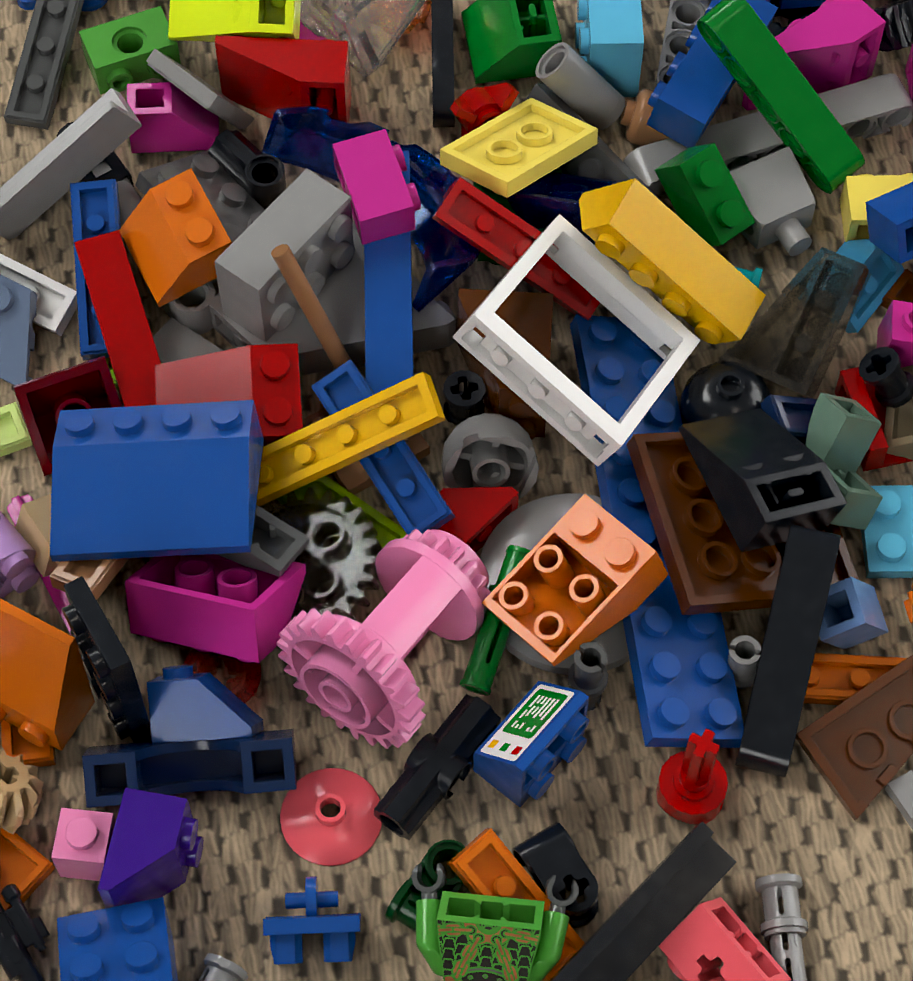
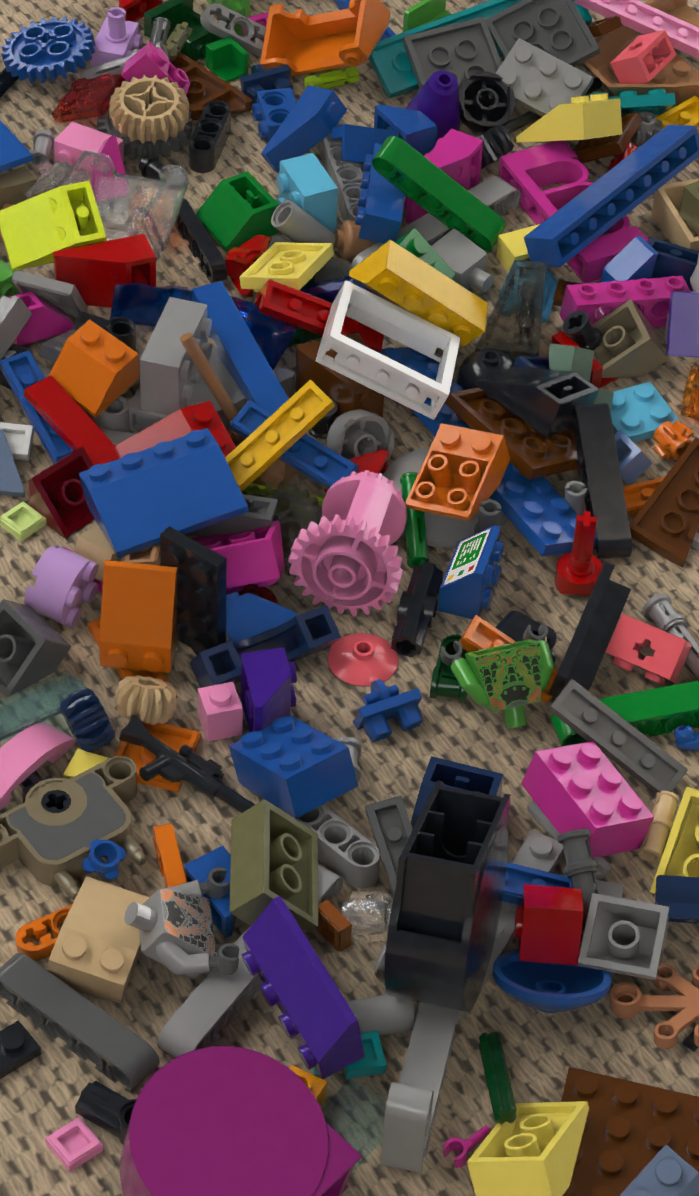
camera: 25 degrees left, 15 degrees down
(374, 180) = (225, 303): dark pink brick -> none

